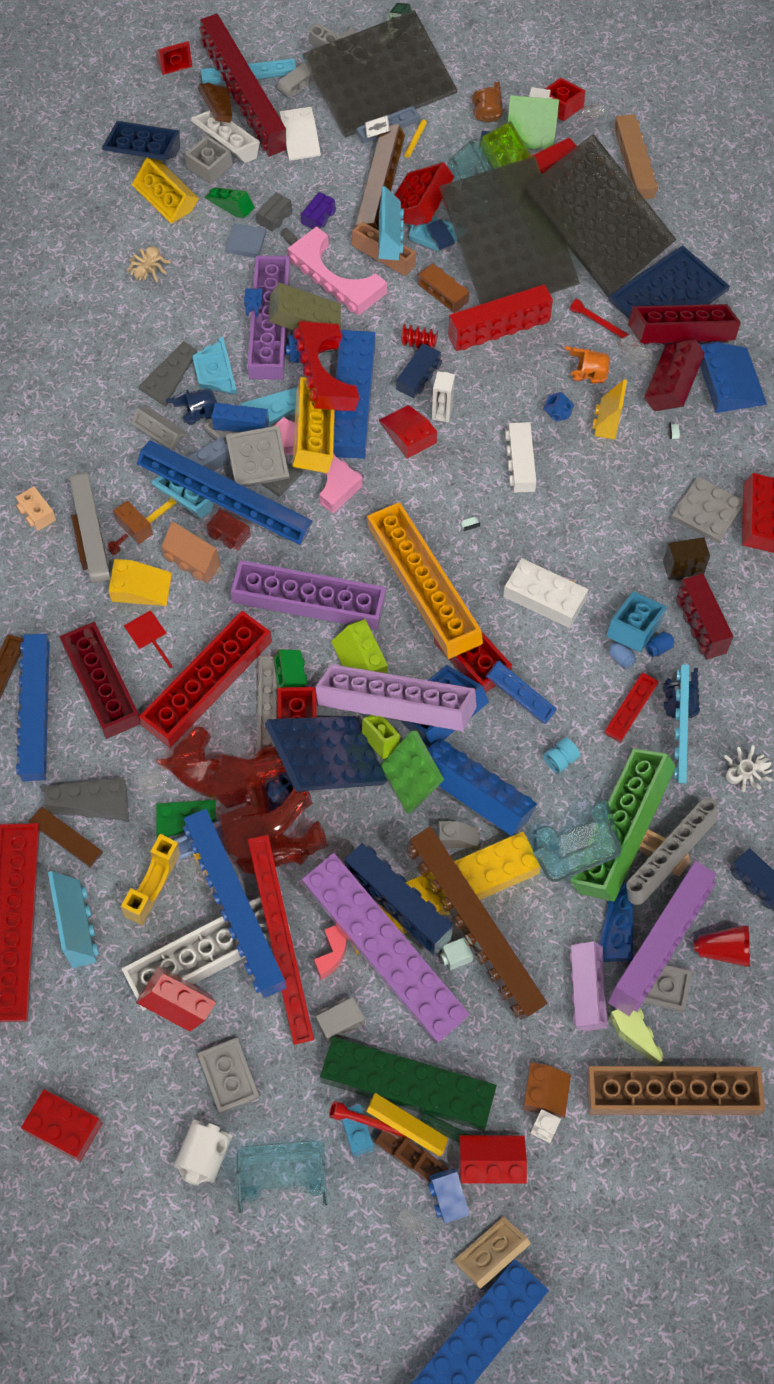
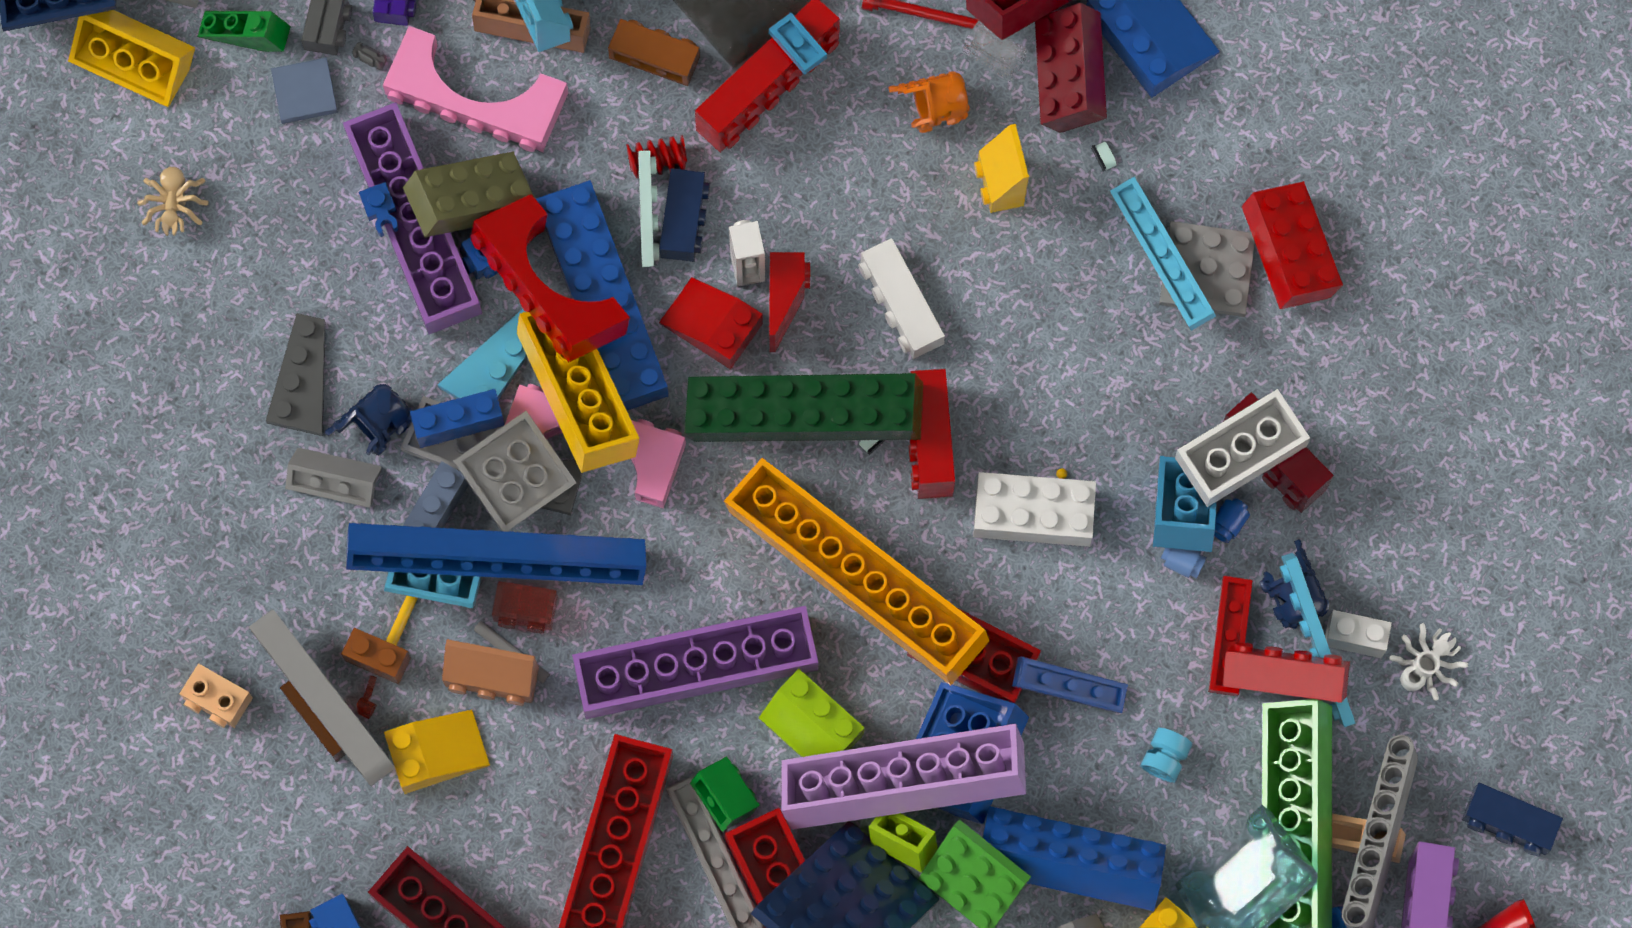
camera: 25 degrees left, 10 degrees up
(145, 631) = (480, 817): red piece -> none
(214, 368) = (368, 340): medium azure wing -> none
(397, 362) = (648, 222): none -> light aqua plate
(437, 484) = (804, 407): none -> dark green brick
(455, 427) = (787, 285): none -> red slope
(503, 528) = (933, 454): none -> red brick
(522, 300) = (797, 43): none -> dark azure plate
(558, 406) = (921, 191): blue brick -> none
(655, 734) = (1286, 673): none -> brick
(683, 596) = (1242, 448): none -> white brick
(684, 489) = (1163, 253): none -> medium azure plate
(686, 558) = (1213, 371): dark brown brick -> none
(710, 735) = (1357, 634): none -> white brick

